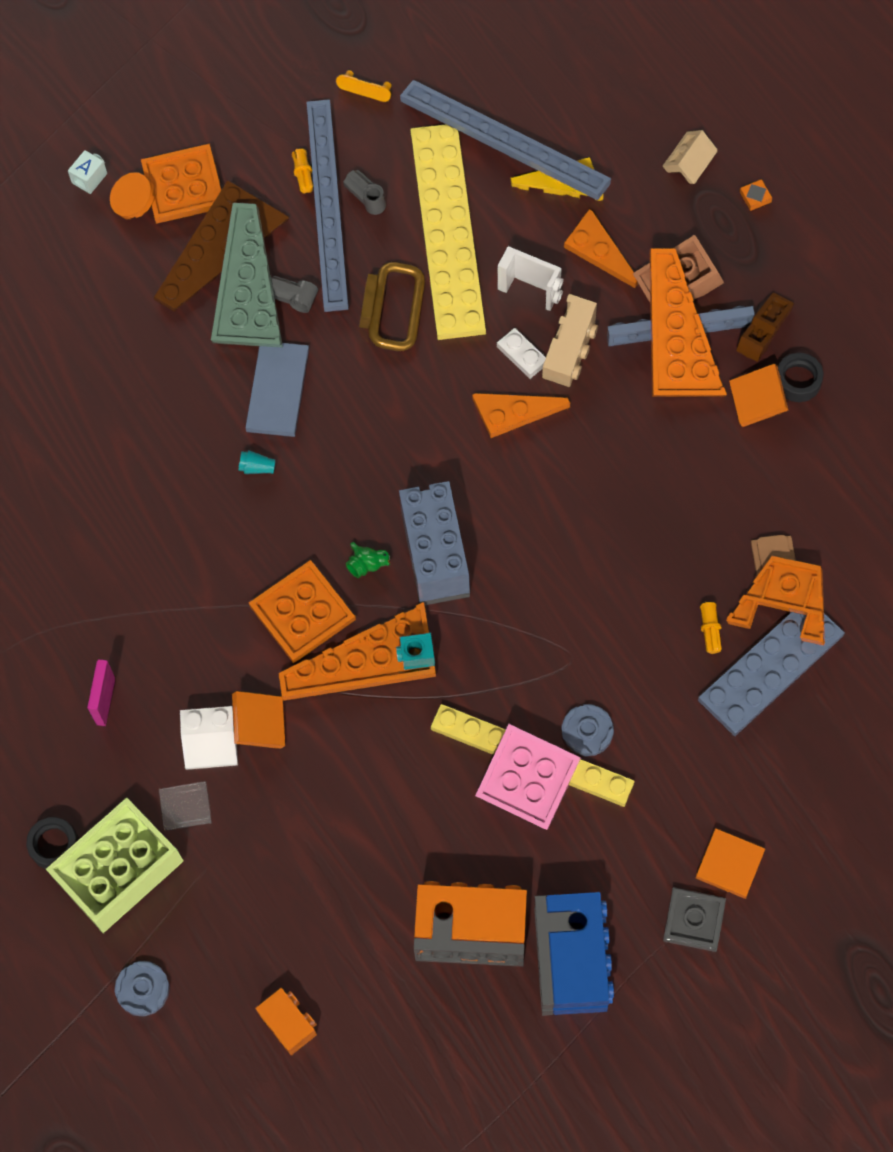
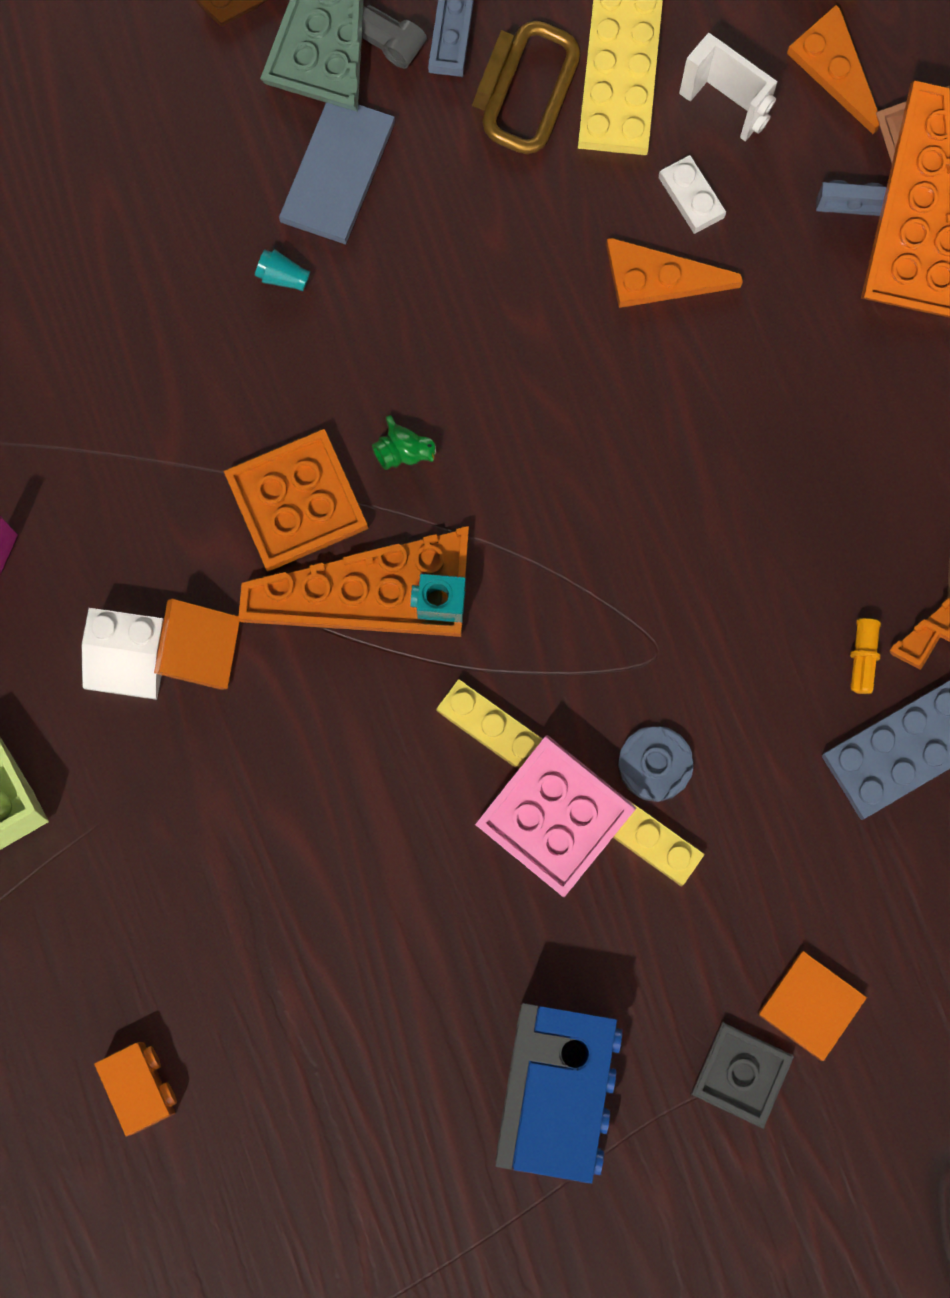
camera: 10 degrees right, 10 degrees up
(185, 805) = (69, 742): clear piece -> none
(434, 543) = (502, 446): sand blue piece -> none
(482, 927) = (436, 1024): orange piece -> none
(571, 341) = (765, 192): tan wedge -> none

